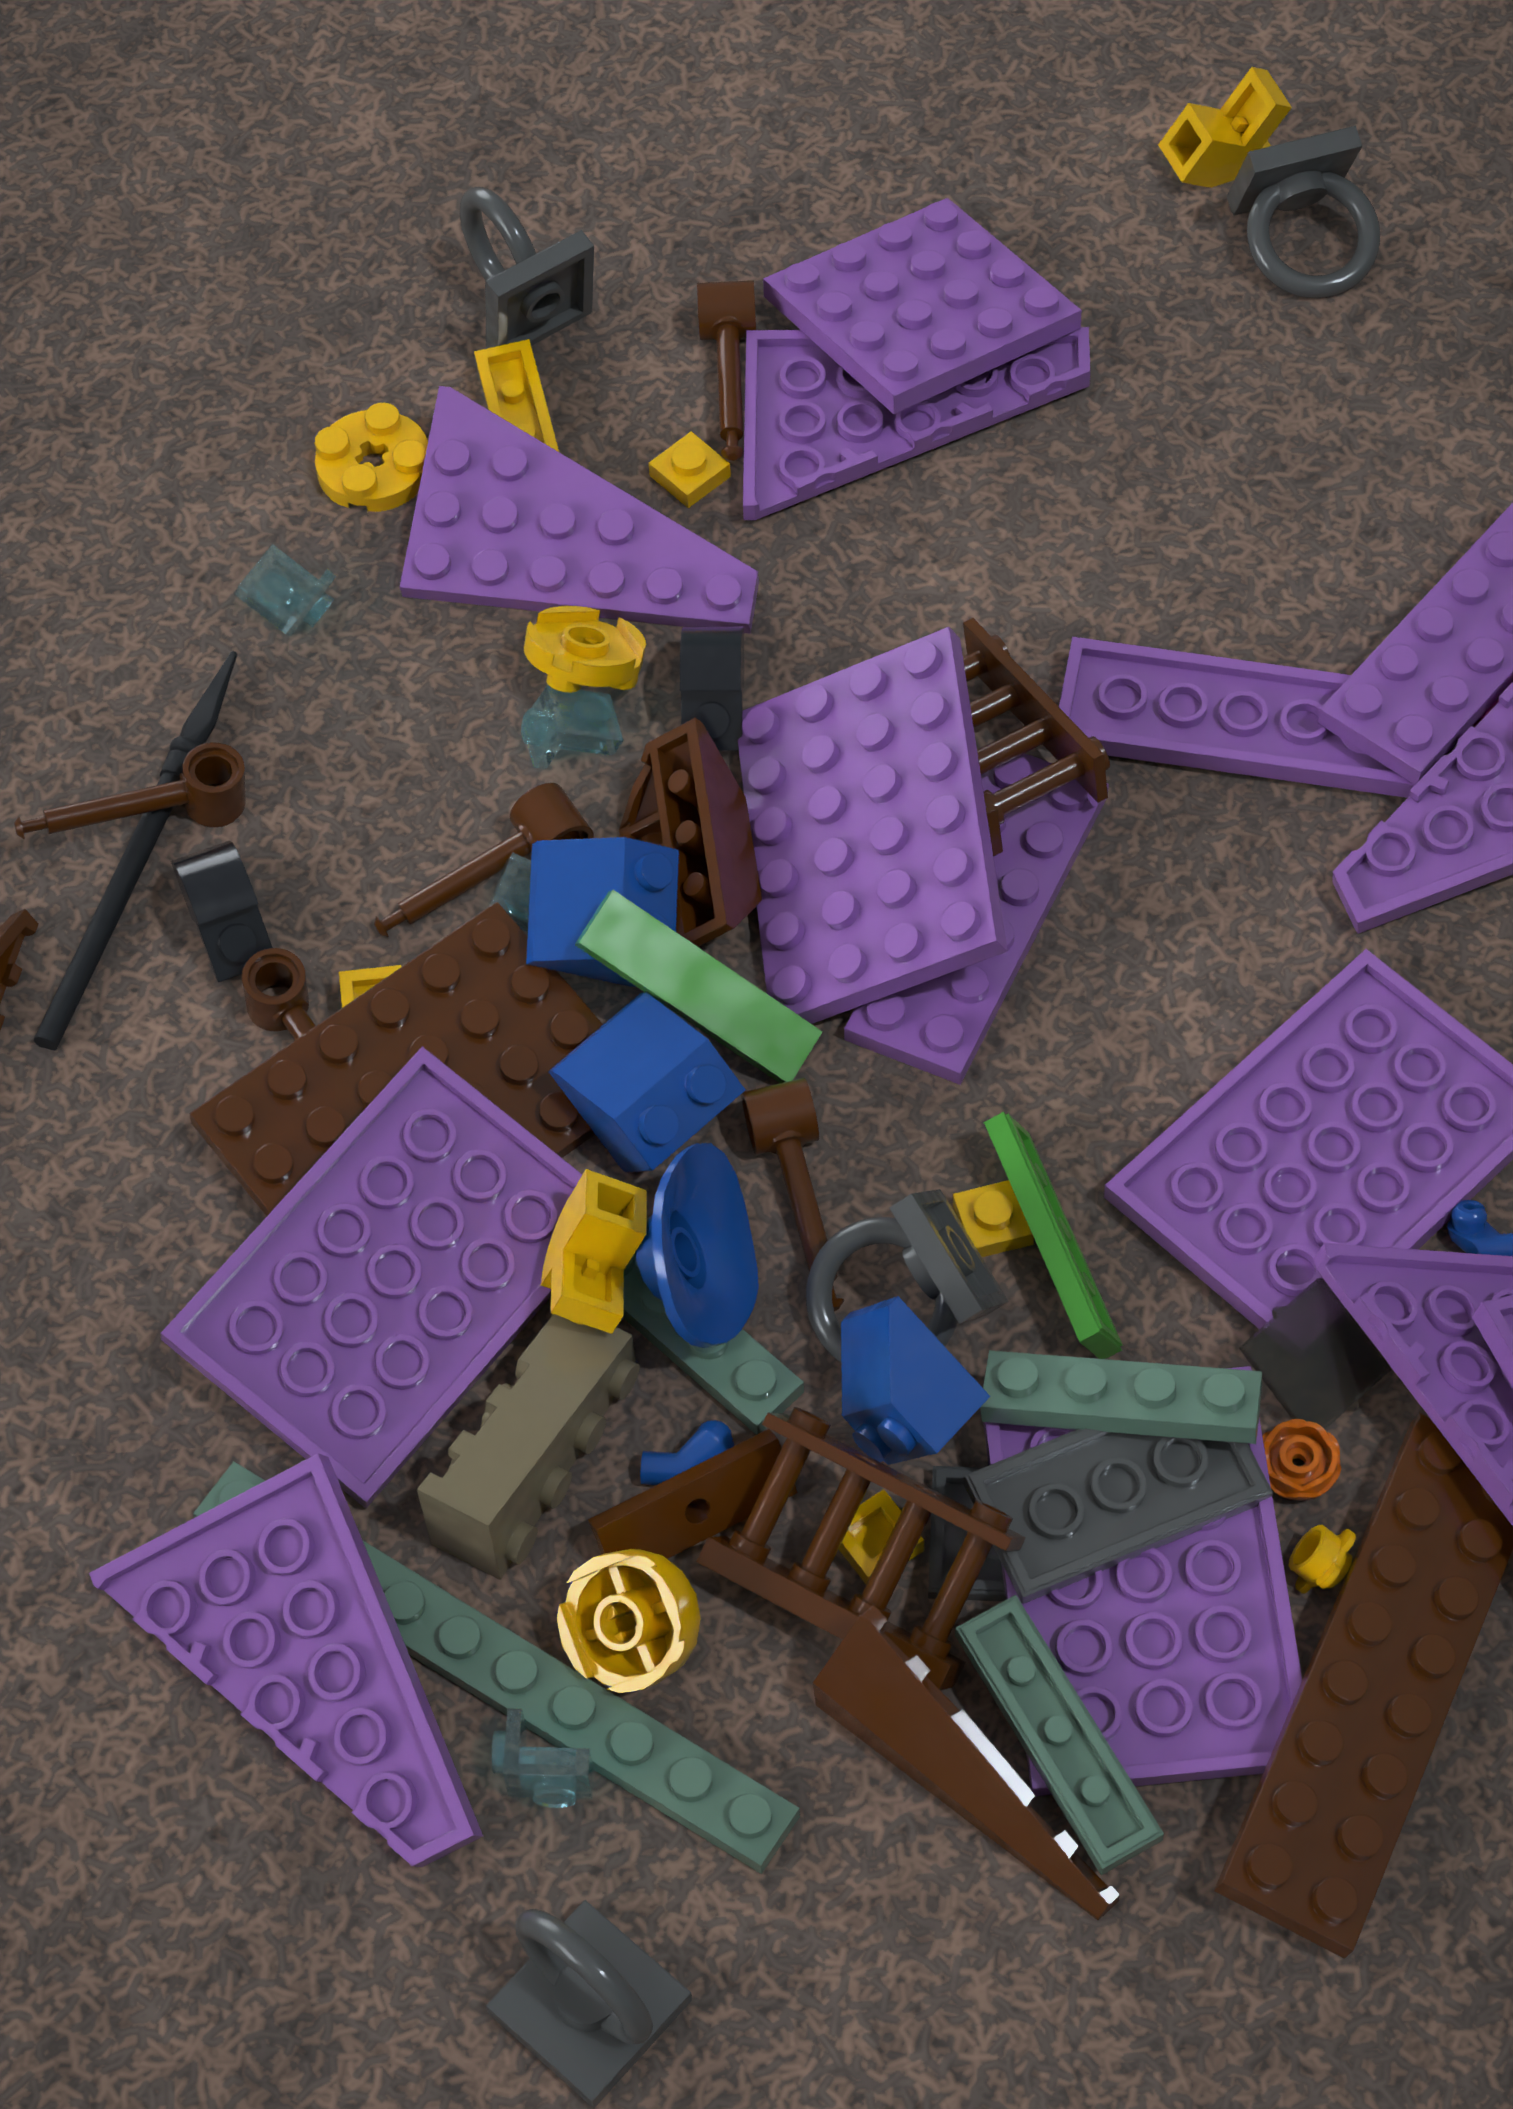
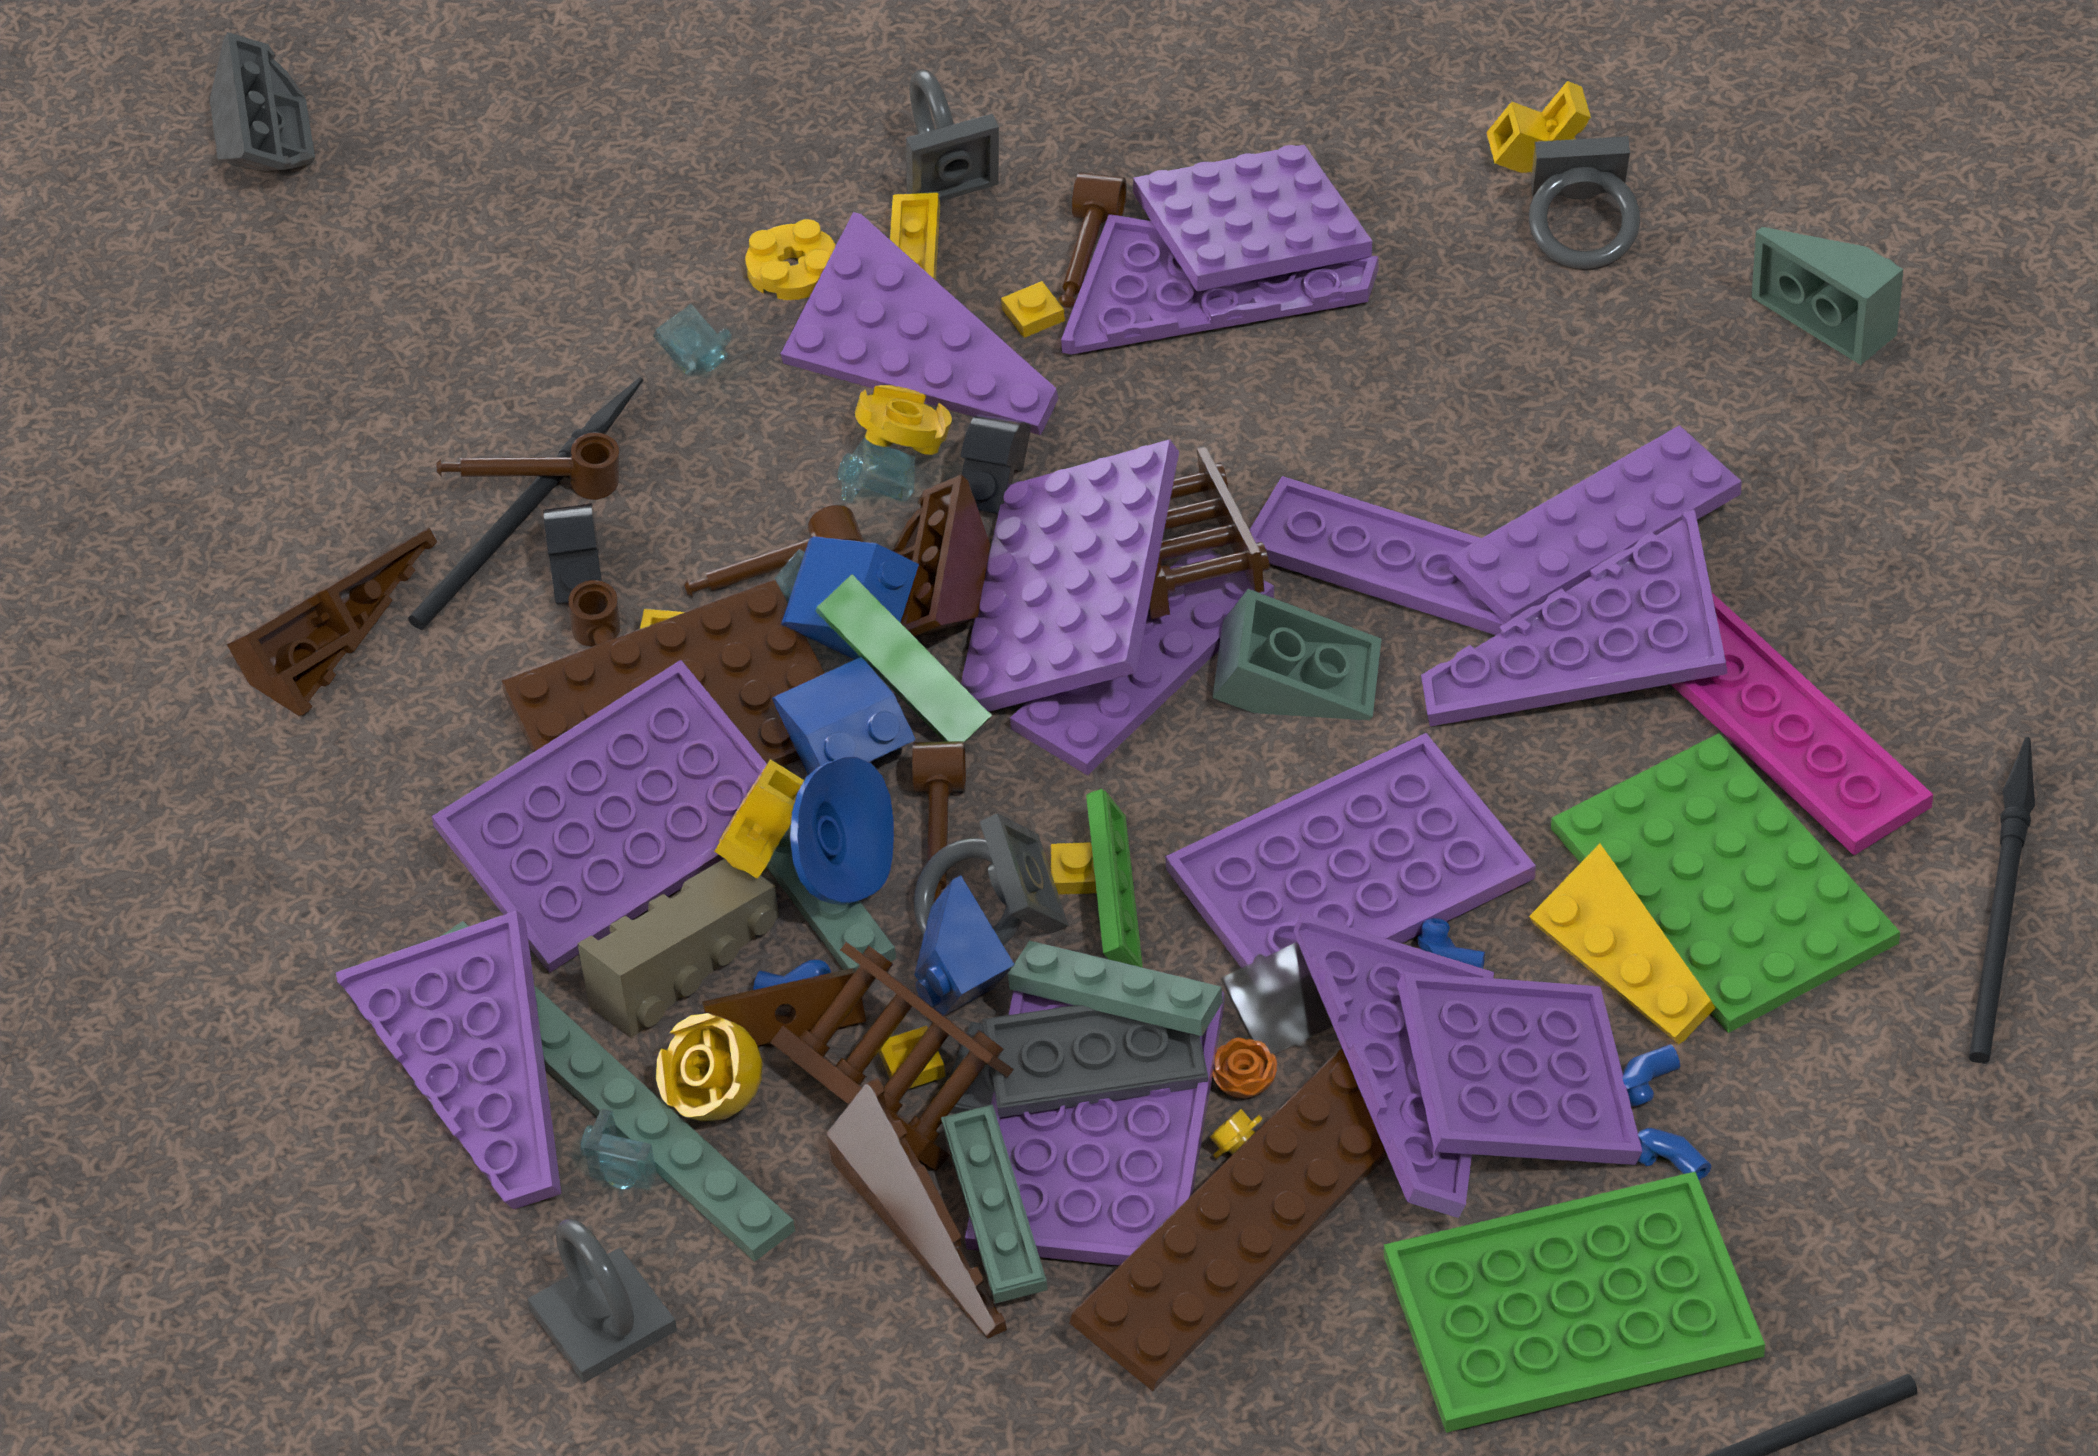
camera: 15 degrees right, 10 degrees down
(1170, 884) = (1294, 662): none -> sand green slope

